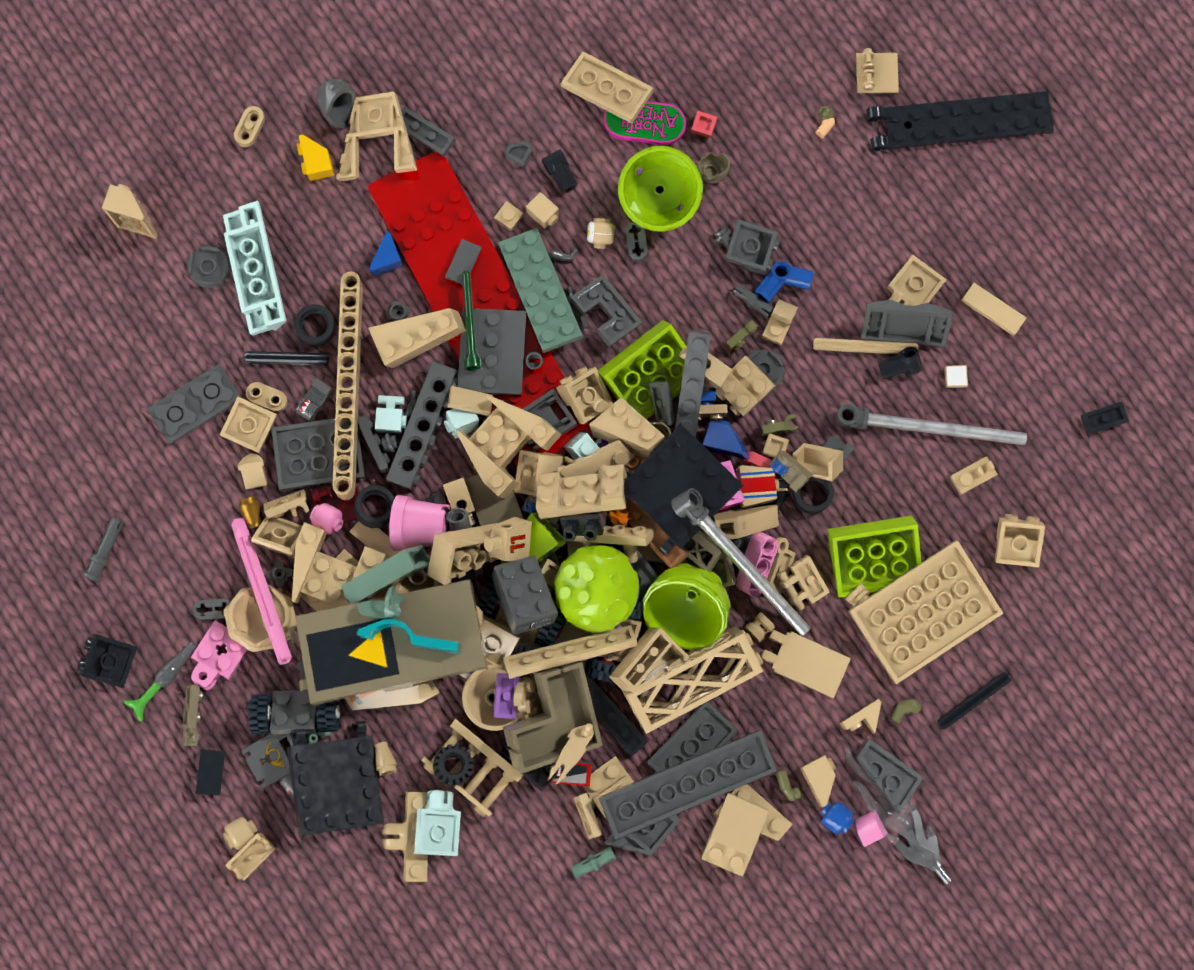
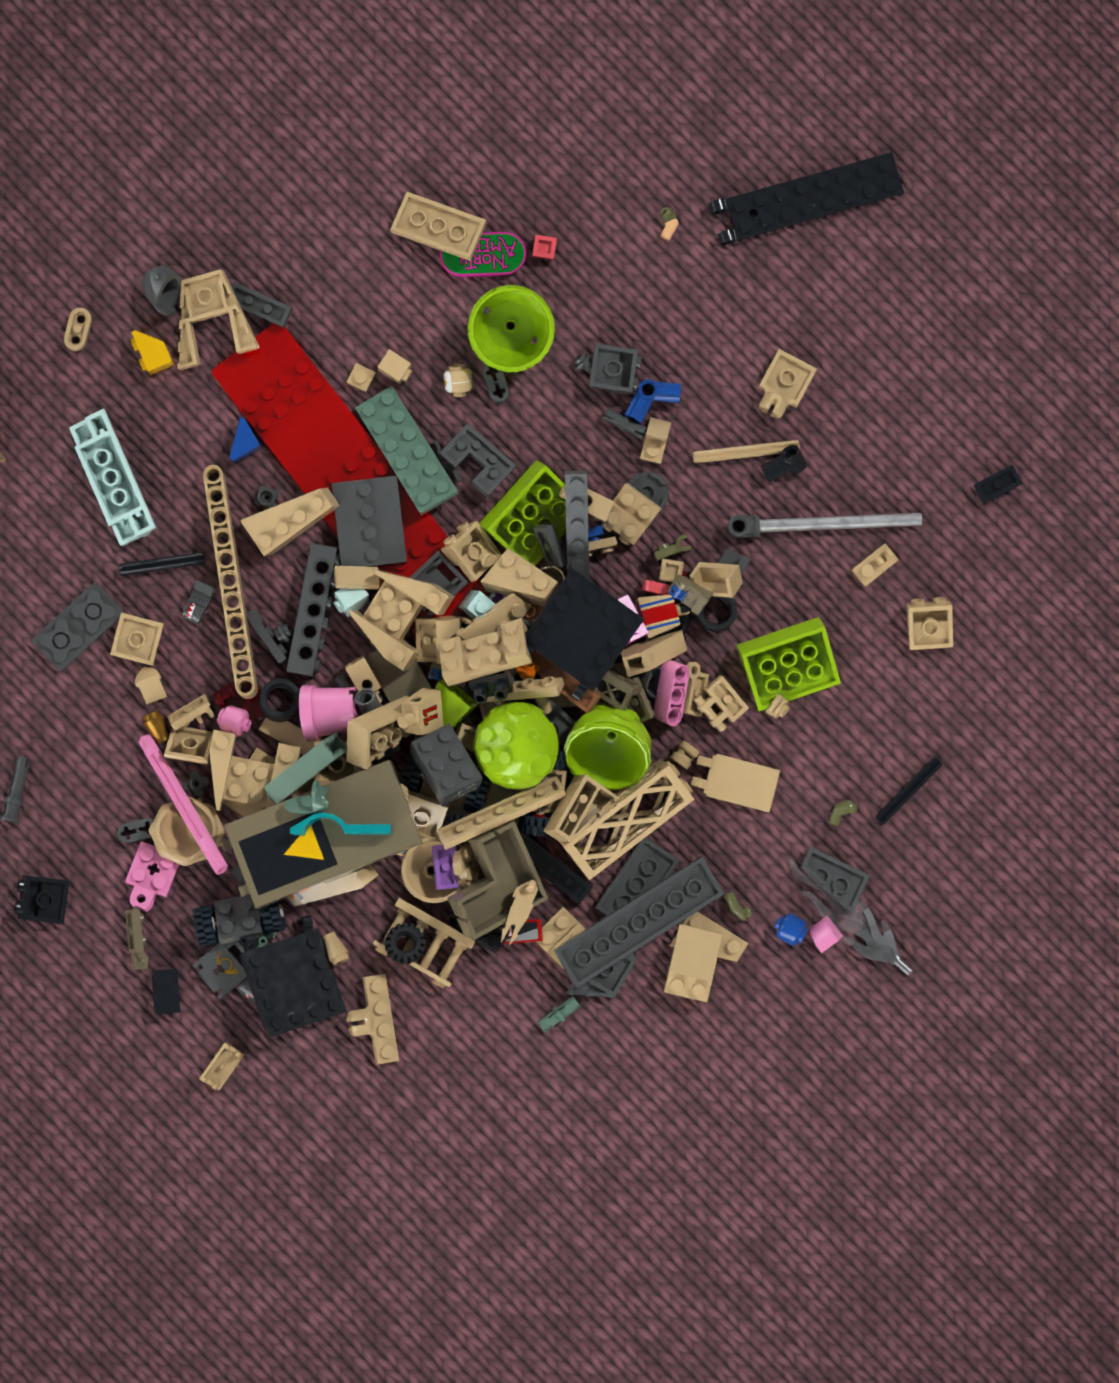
camera: 10 degrees left, 5 degrees up
(162, 679) = (100, 907): dark grey piece -> none
(208, 267) = (64, 483): dark grey tile -> none
(239, 833) = (206, 1045): tan head -> none
(266, 396) = (148, 607): tan plate -> none
(307, 454) = (202, 657): dark grey plate -> none
(315, 309) = (184, 508): black tyre -> none
(390, 419) = (278, 608): light aqua brick -> none
(410, 407) = (297, 590): dark grey piece -> none
(438, 825) = (400, 1004): light aqua plate -> none
(463, 261) = (324, 435): dark grey tile -> none
(472, 360) = (351, 537): dark green piece -> none
(519, 153) = (360, 309): dark grey tile -> none
(534, 355) = (414, 529): dark grey hinge -> none
(557, 166) = (402, 318): black piece -> none
(561, 256) = (419, 410): dark grey piece -> none
(585, 808) = (550, 976): tan plate -> none
(690, 504) = (595, 648): flat silver piece -> none
(714, 167) = (561, 292): dark tan hair -> none
(724, 440) = (619, 572): blue slope -> none
(738, 340) = (616, 468): olive plate -> none
(820, 778) = (768, 893): tan slope -> none
(868, 714) = (806, 822): tan slope -> none
(877, 72) = (713, 161): tan hinge -> none
(906, 323) = (783, 422): dark grey slope -> none
(925, 612) = (847, 711): tan plate -> none
(956, 376) = (842, 466): white tile -> none
(993, 309) = (870, 390): tan tile -> none

